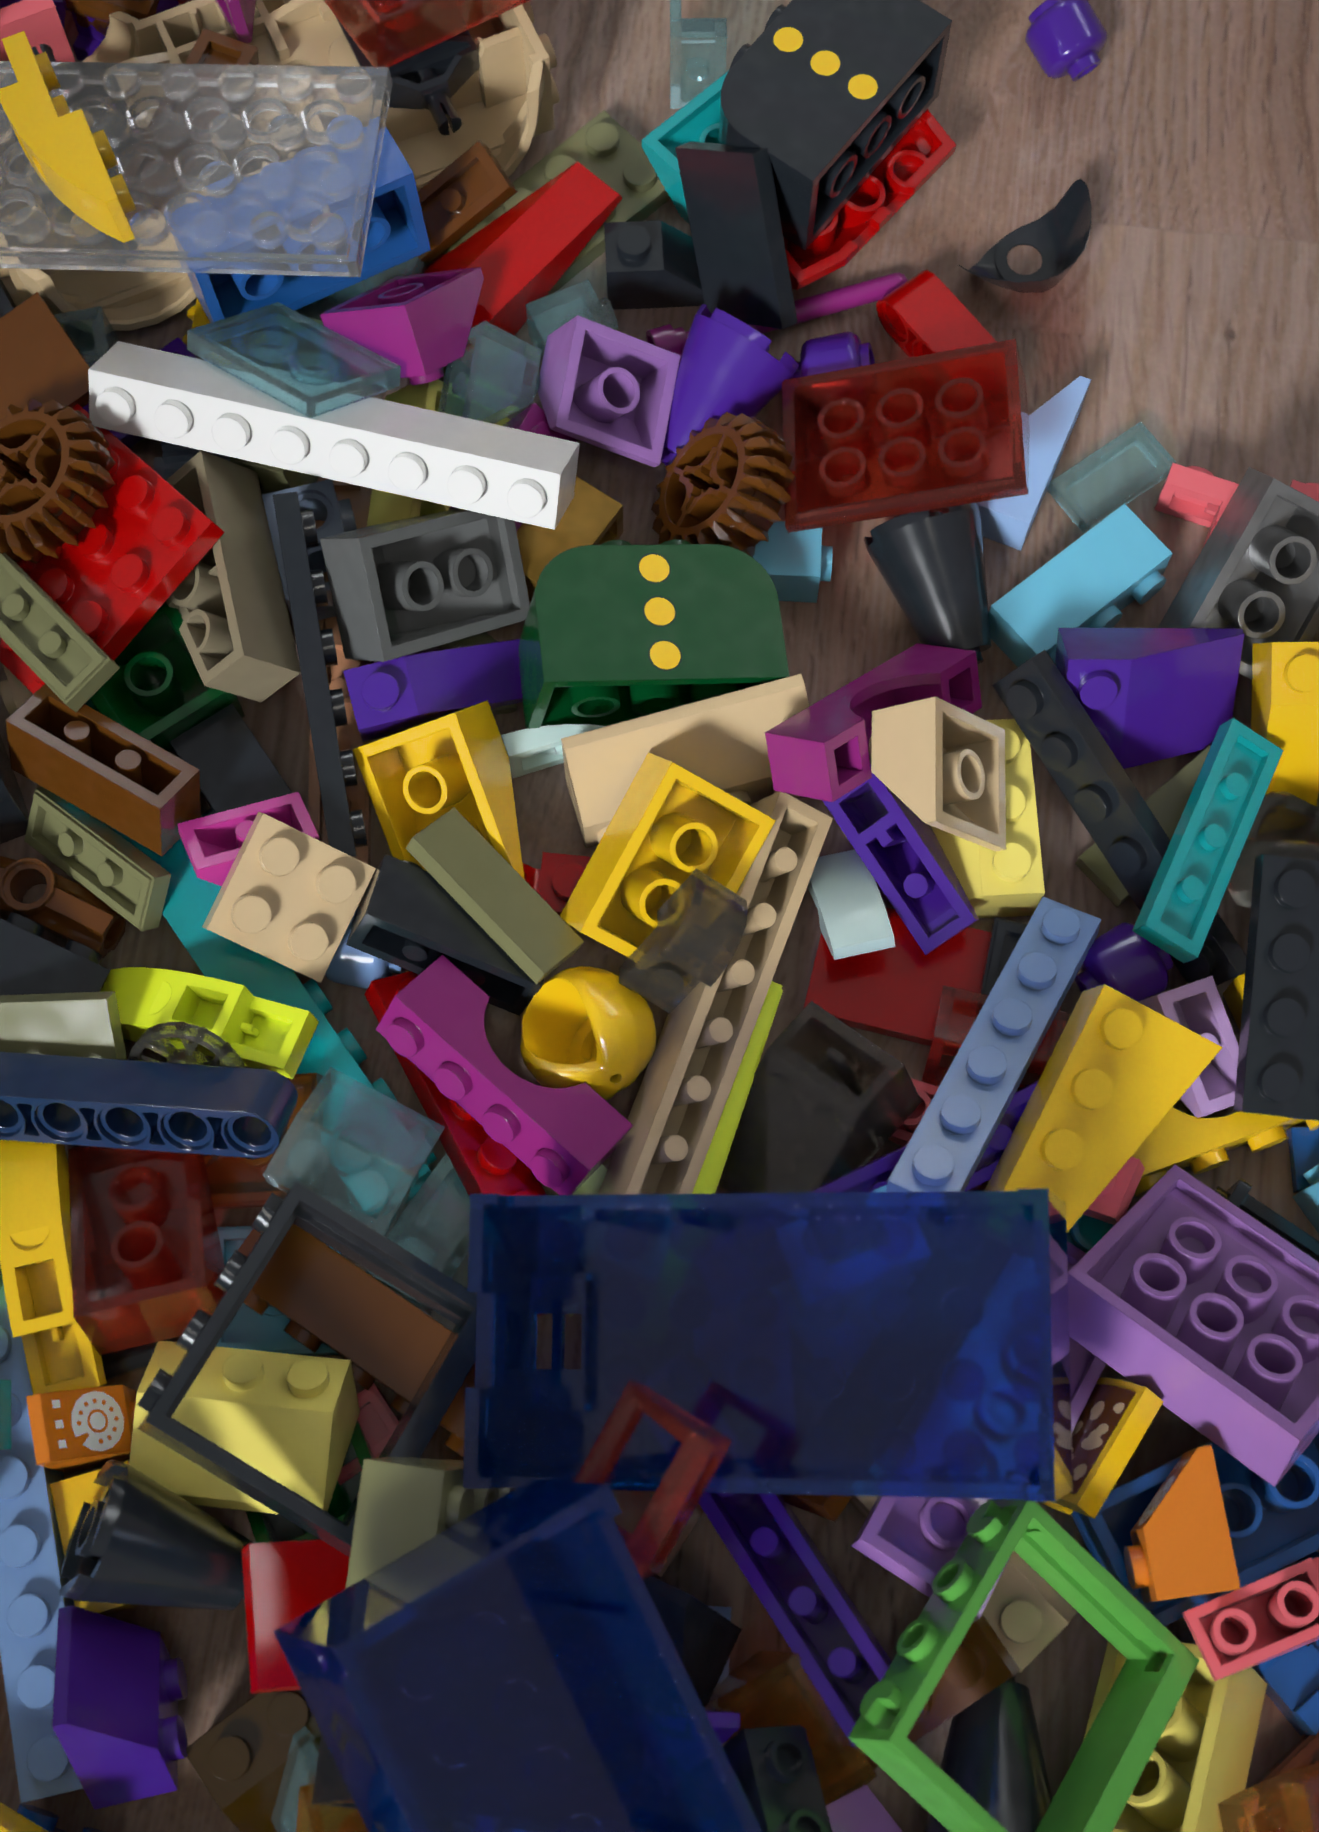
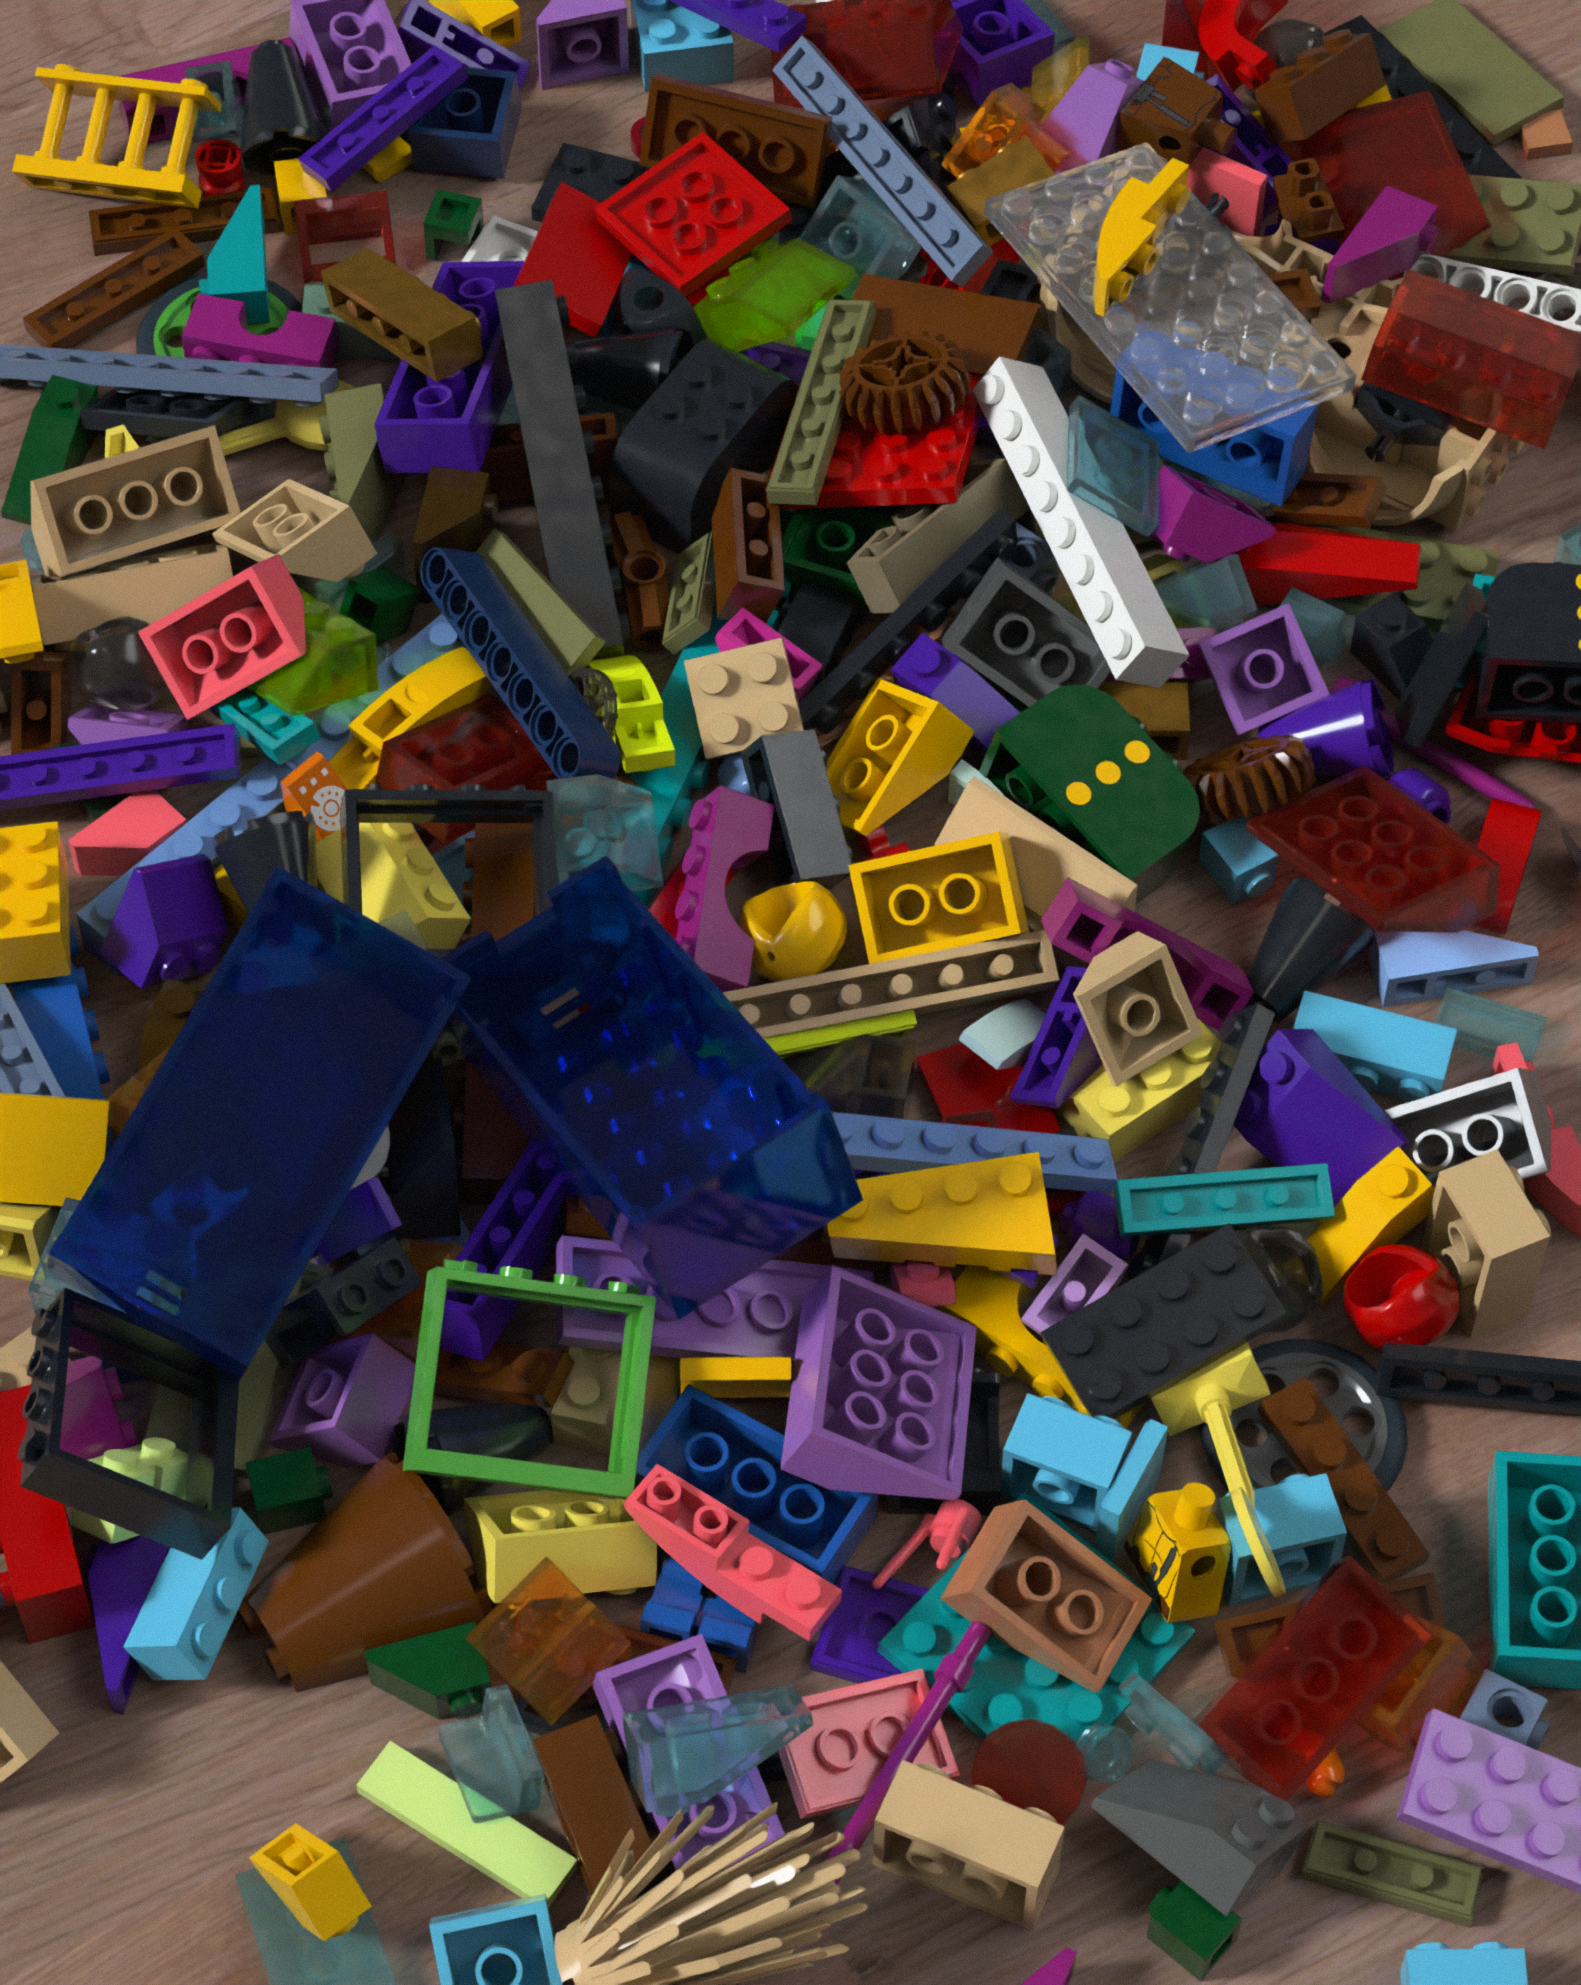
camera: 55 degrees right, 15 degrees down
(494, 895) = (839, 812): olive tile -> none
(681, 1485) = (503, 1056): clear red tile -> none
(690, 945) = (892, 930): clear smoke brick -> none
(1183, 1535) = (710, 1436): orange slope -> none

